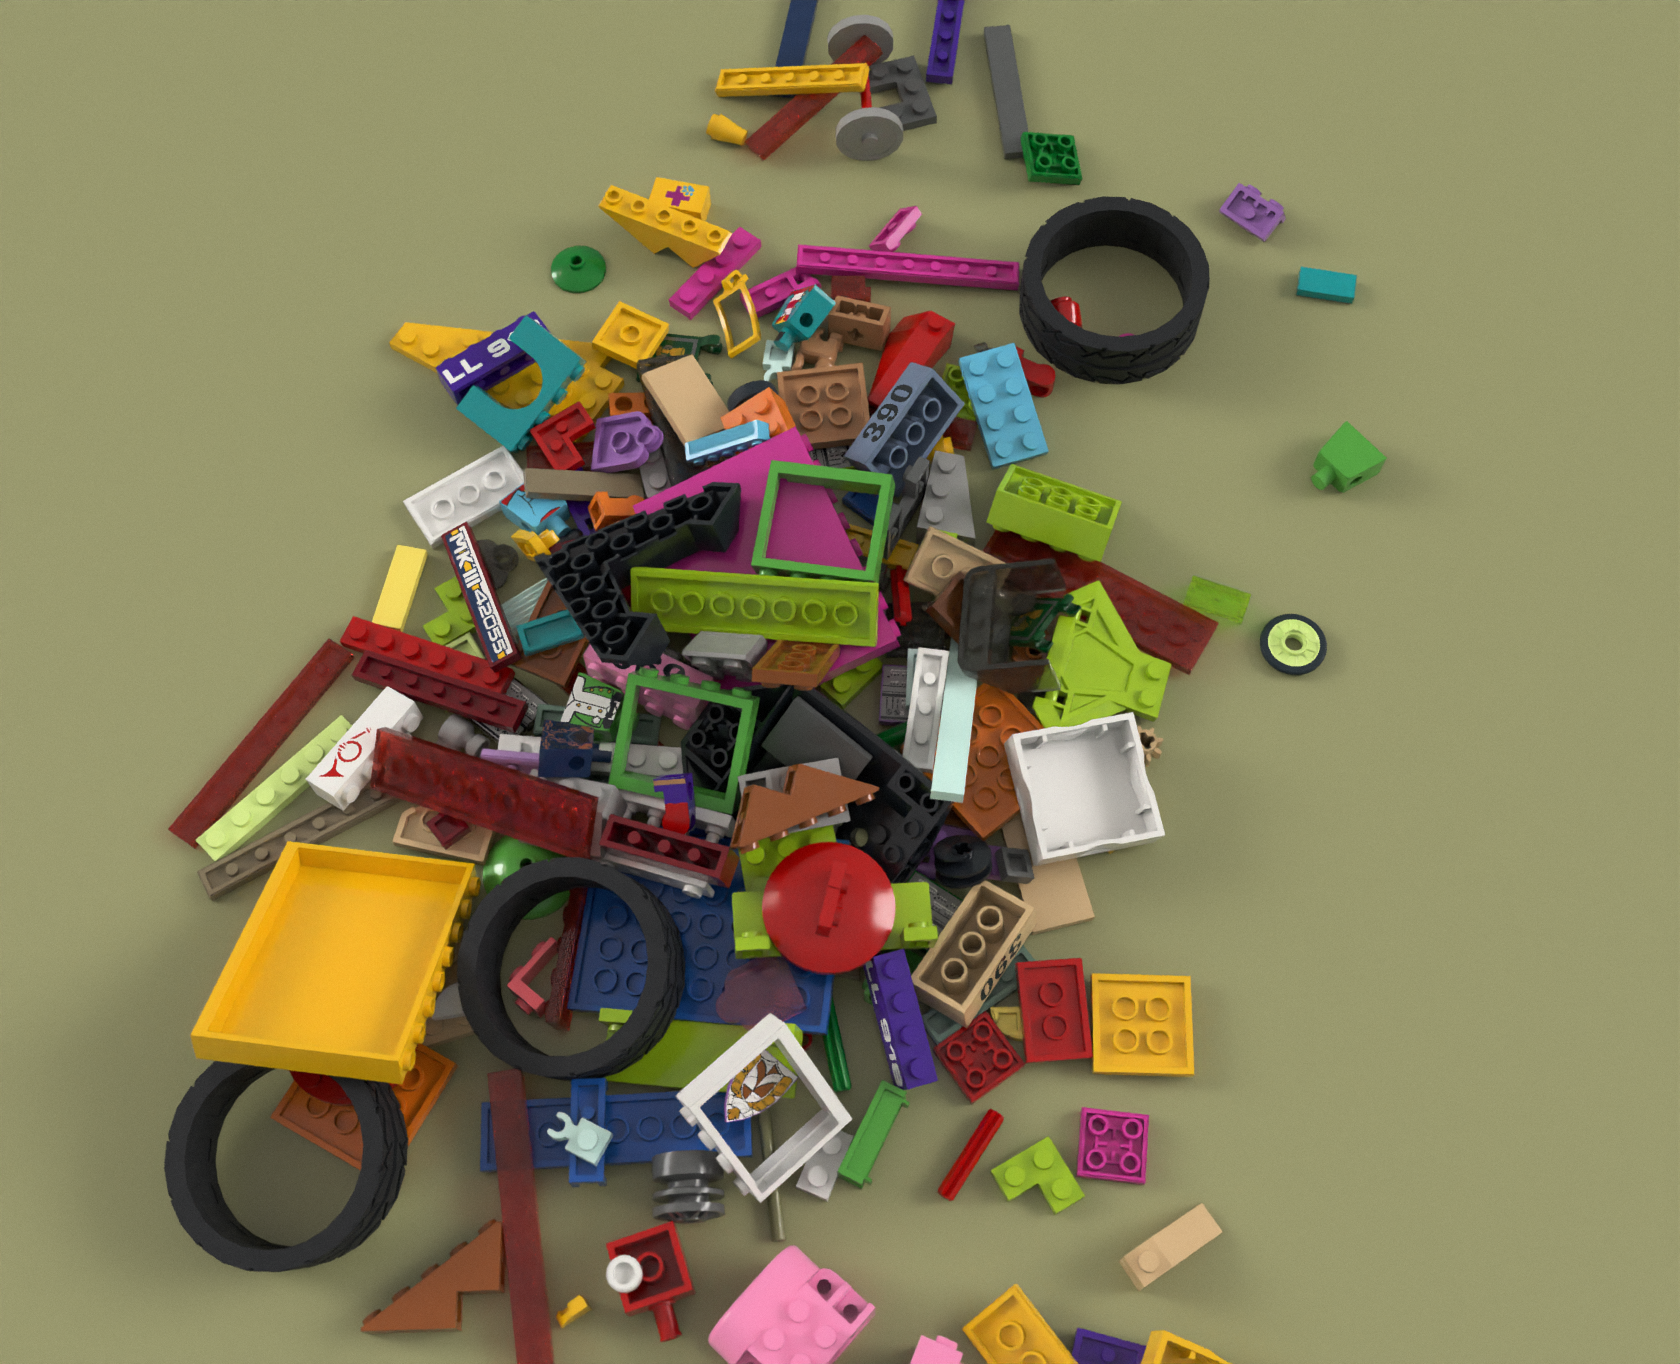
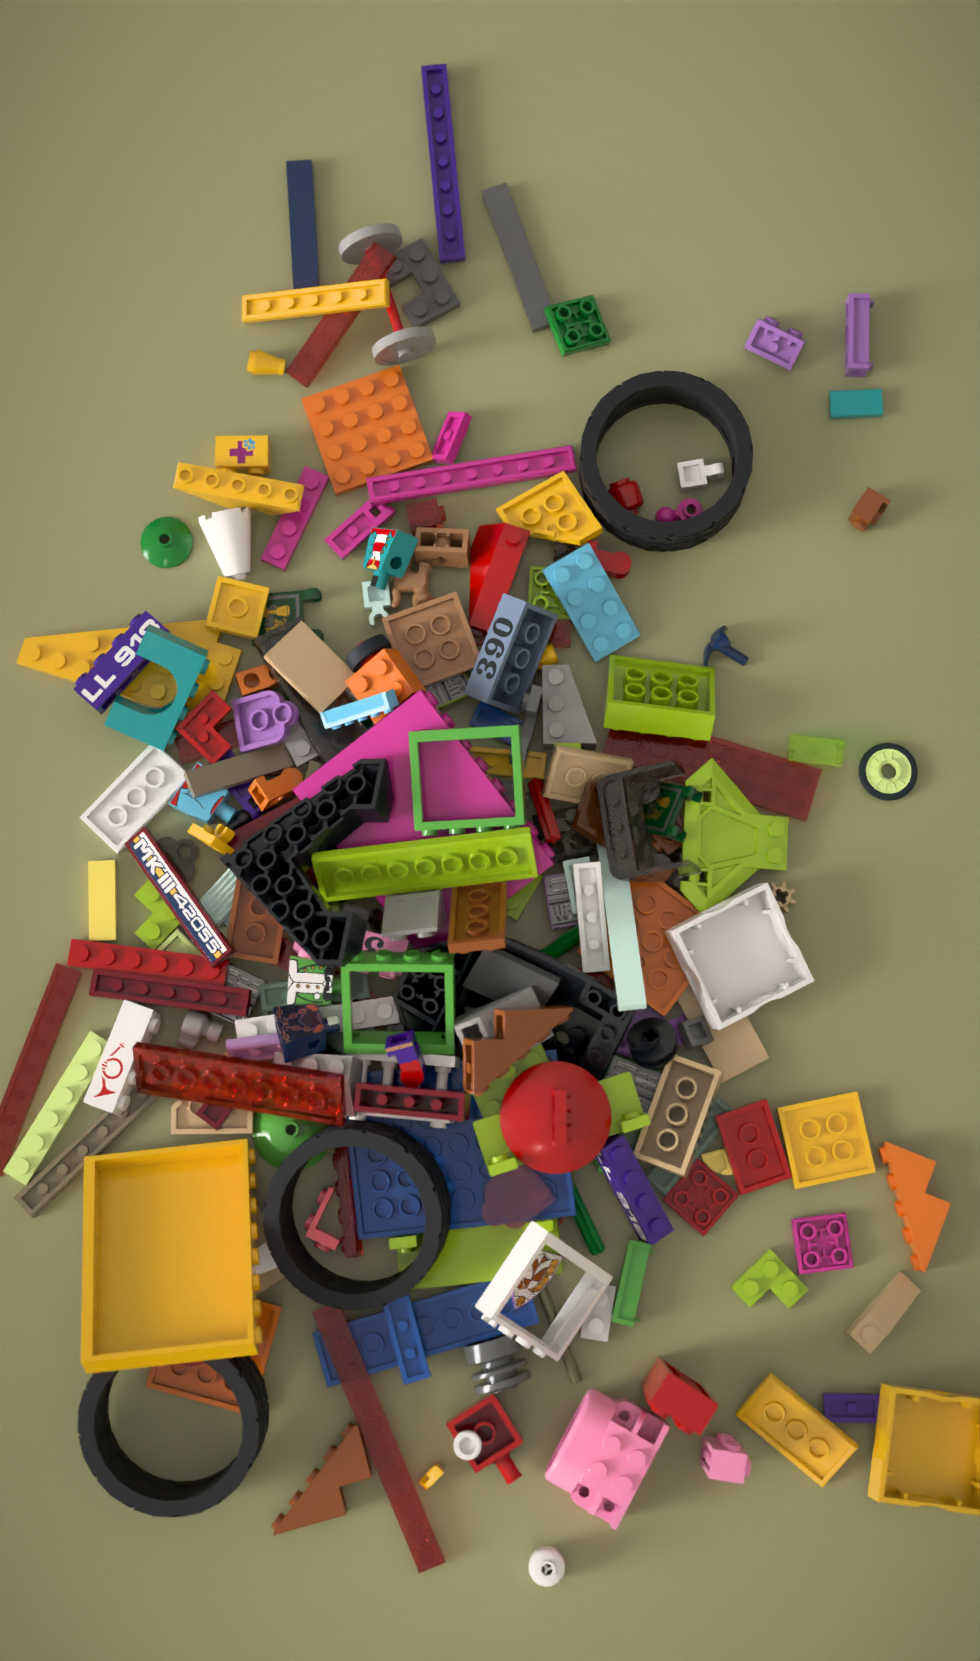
camera: 10 degrees left, 15 degrees up
(548, 632) = (249, 924): teal tile -> none
(585, 1140) = (408, 1349): light aqua plate -> none
(642, 269) = (230, 540): none -> white cone
(729, 288) = (315, 532): yellow sword -> none
(811, 206) = (367, 429): none -> orange plate
(894, 1263) = (678, 1396): none -> red brick
(970, 1155) = (711, 1278): red axle -> none
(984, 315) = (552, 512): none -> yellow plate
(1130, 476) = (721, 643): none -> dark blue plant
(1142, 313) = (695, 475): none -> white plate
(1238, 1130) = (920, 1211): none -> orange slope
(1321, 381) = (868, 510): none -> dark orange brick
(1340, 221) = (857, 334): none -> medium lavender container
(1346, 460) = (903, 584): bright green torso -> none

